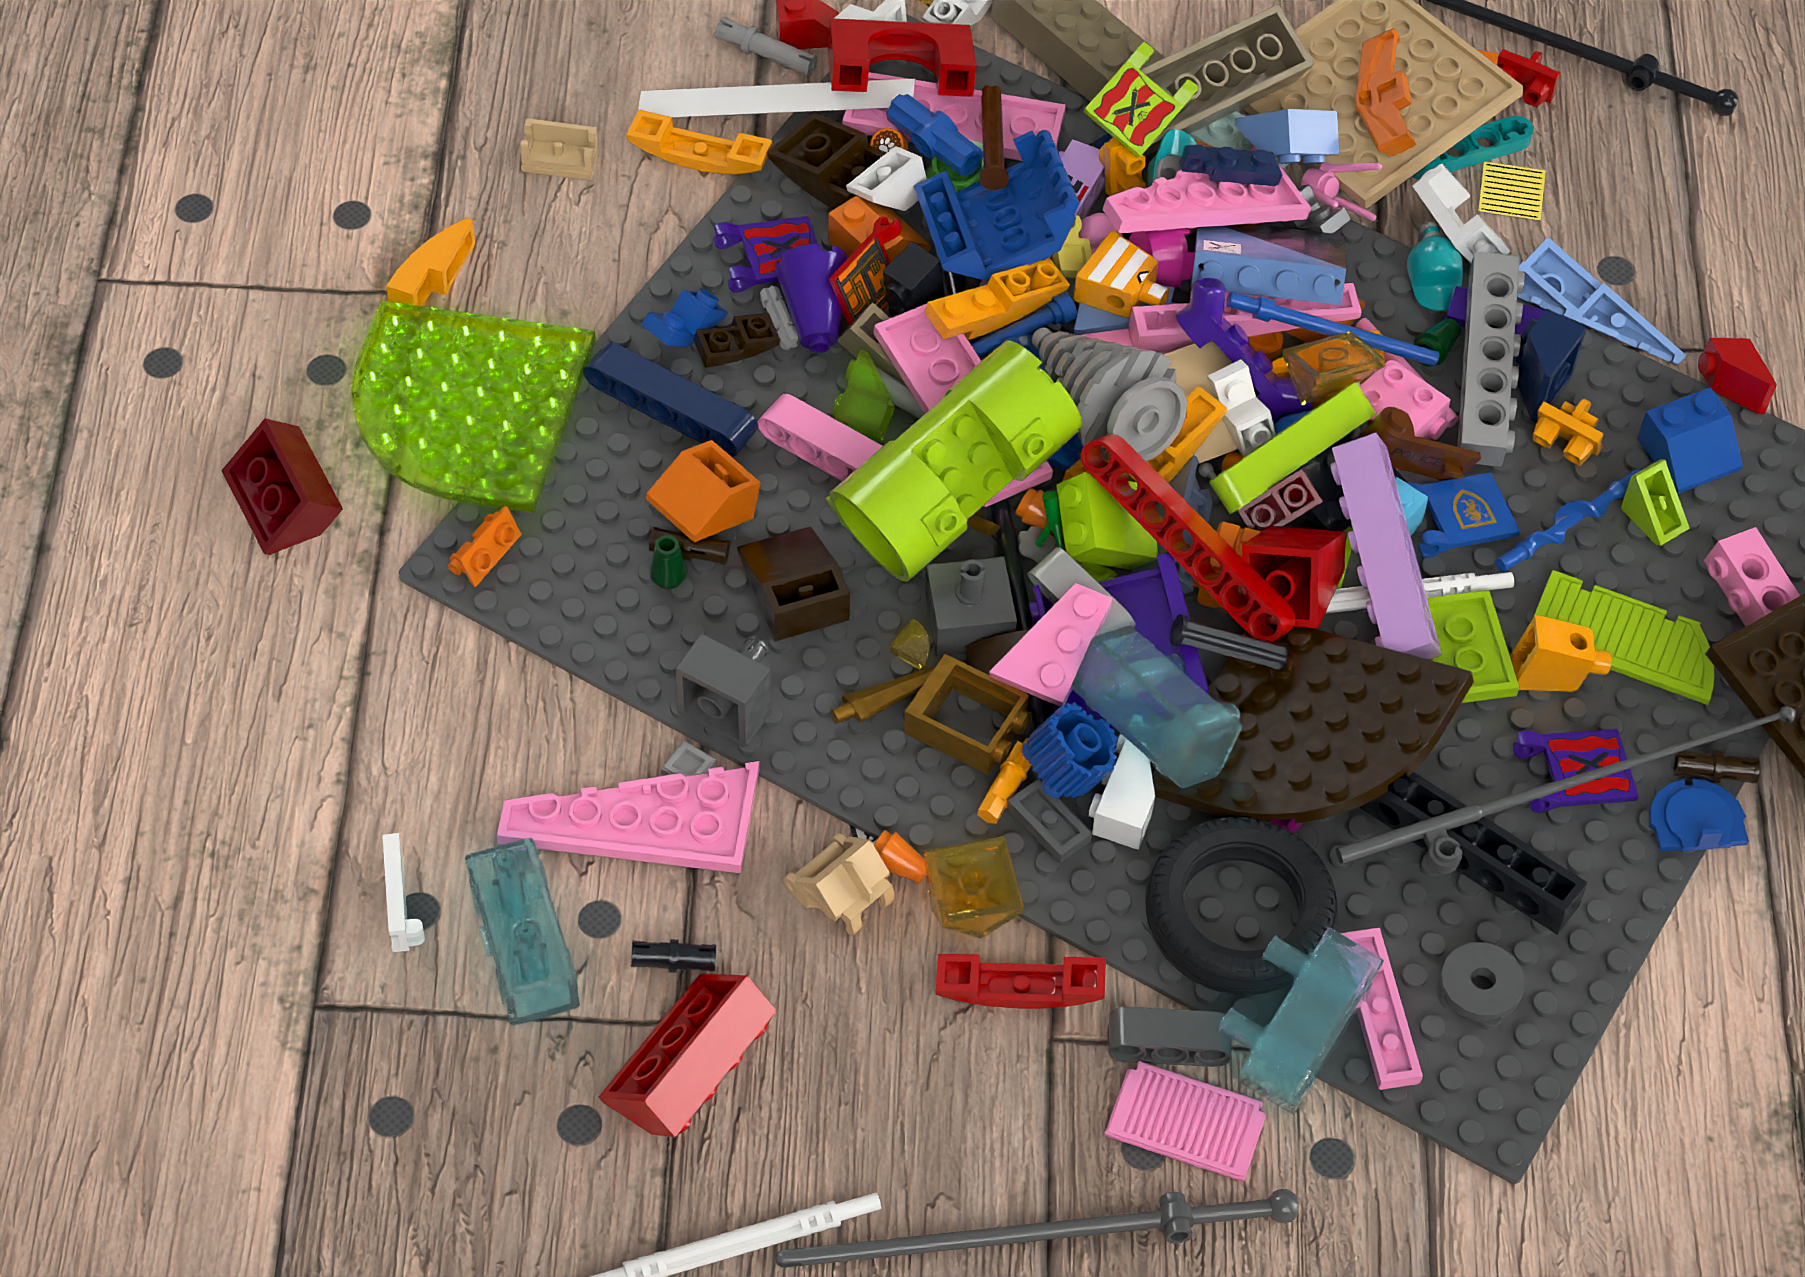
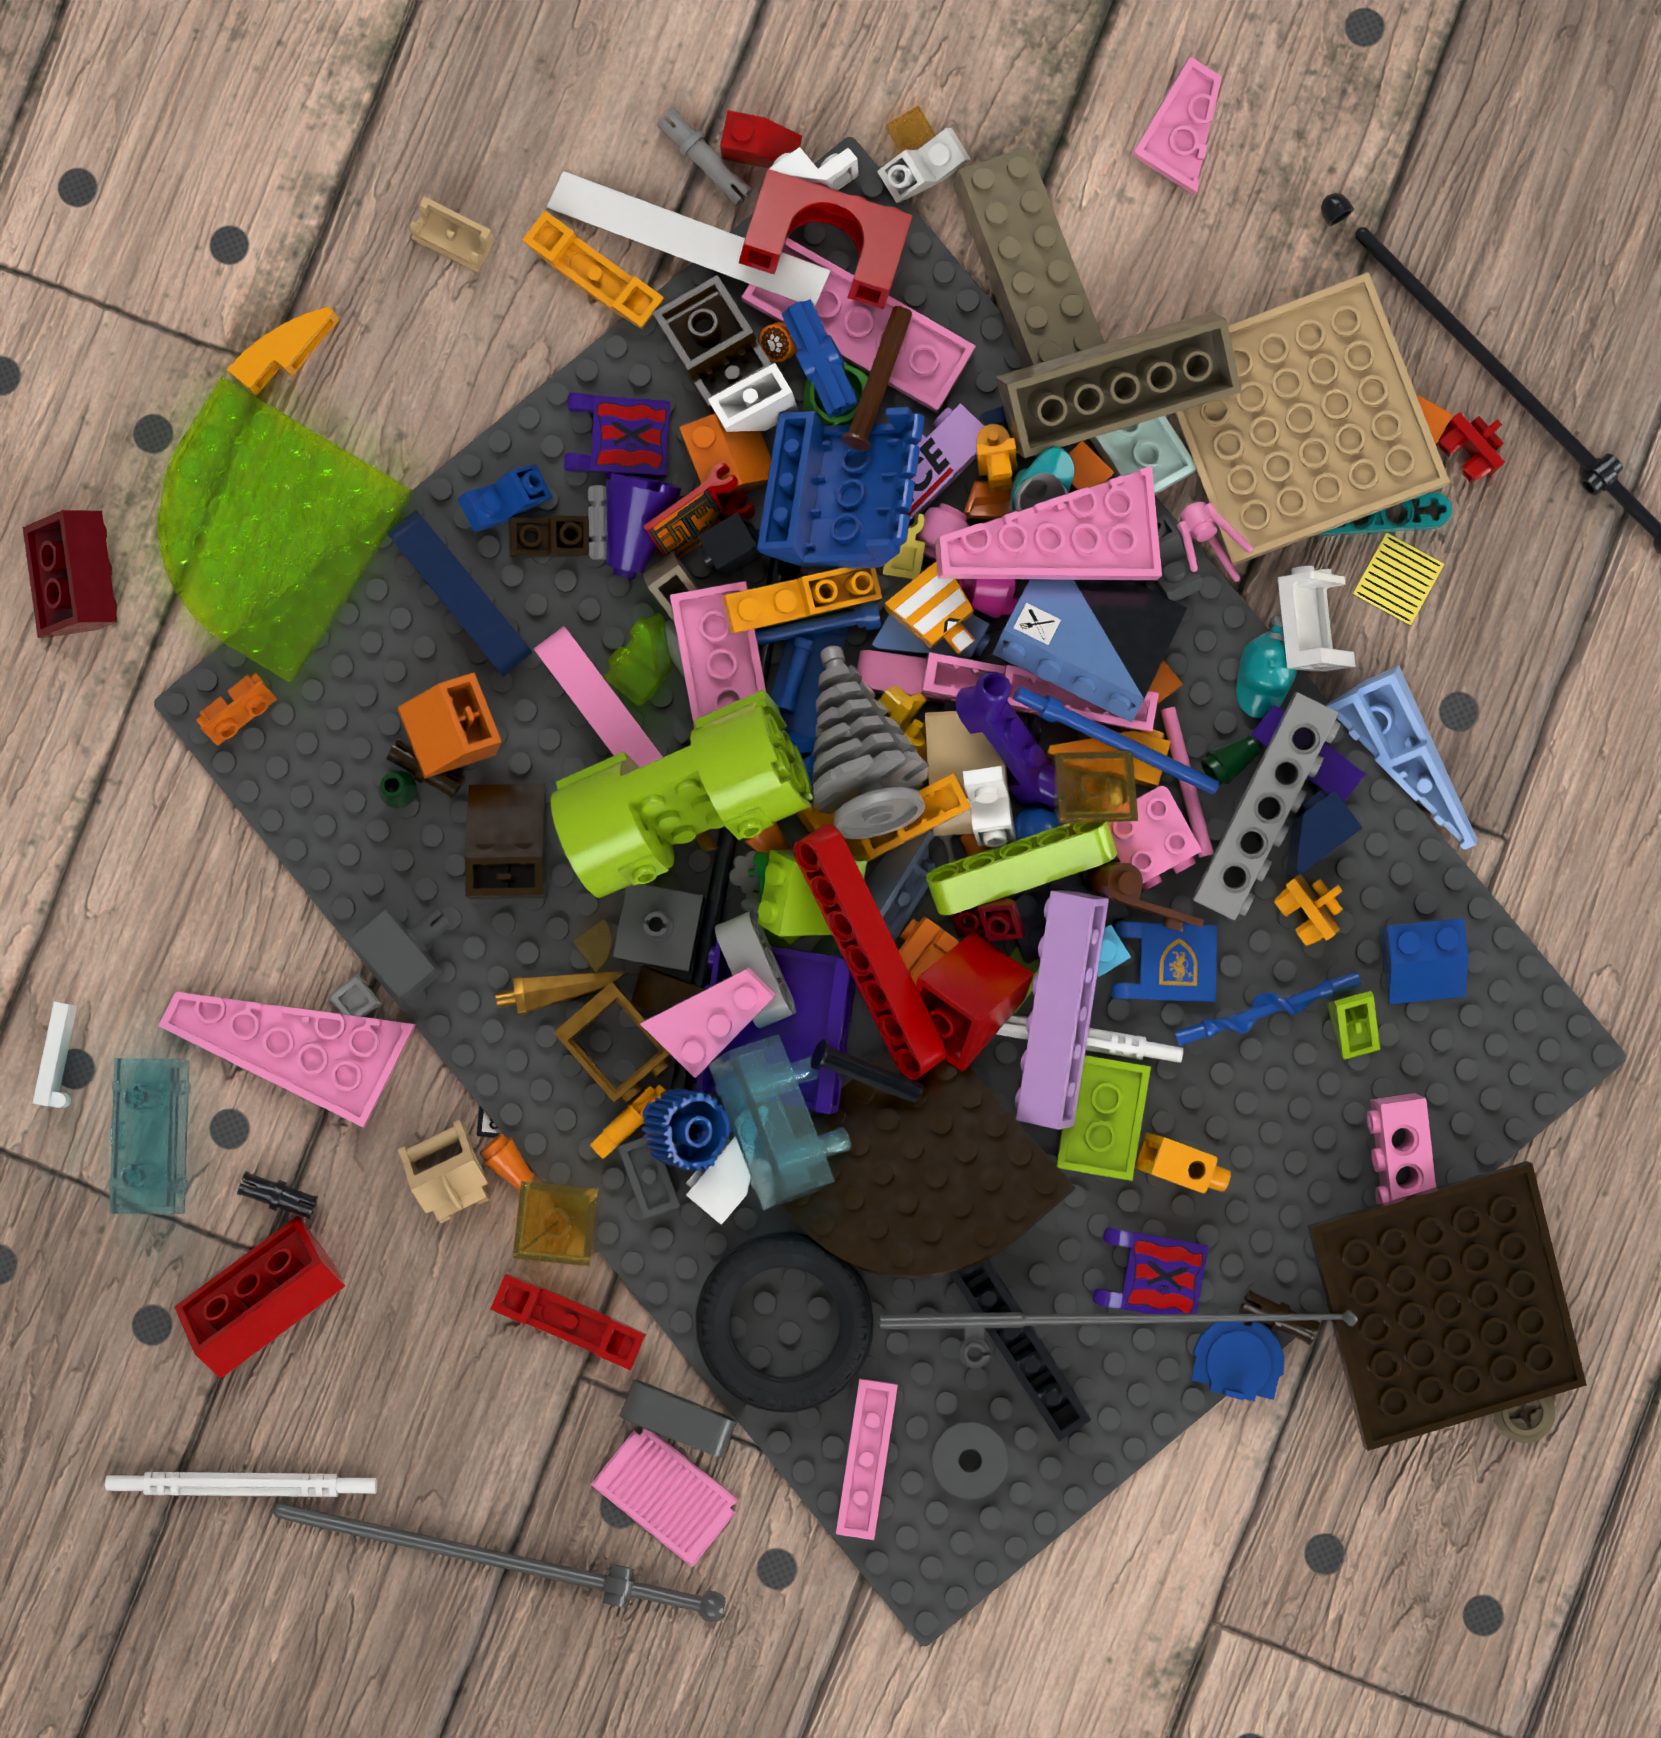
camera: 25 degrees right, 30 degrees up
(1136, 107) = (1019, 417): flag -> none
(1232, 165) = (1099, 508): dark blue hinge -> none
(1293, 134) = (1180, 472): medium blue slope -> none
(1309, 1021) = (791, 1466): clear light blue piece -> none
(1383, 94) = (1299, 447): orange plate -> none
(1635, 635) = (1261, 1145): lime piece -> none
(1737, 372) = (1510, 890): red slope -> none

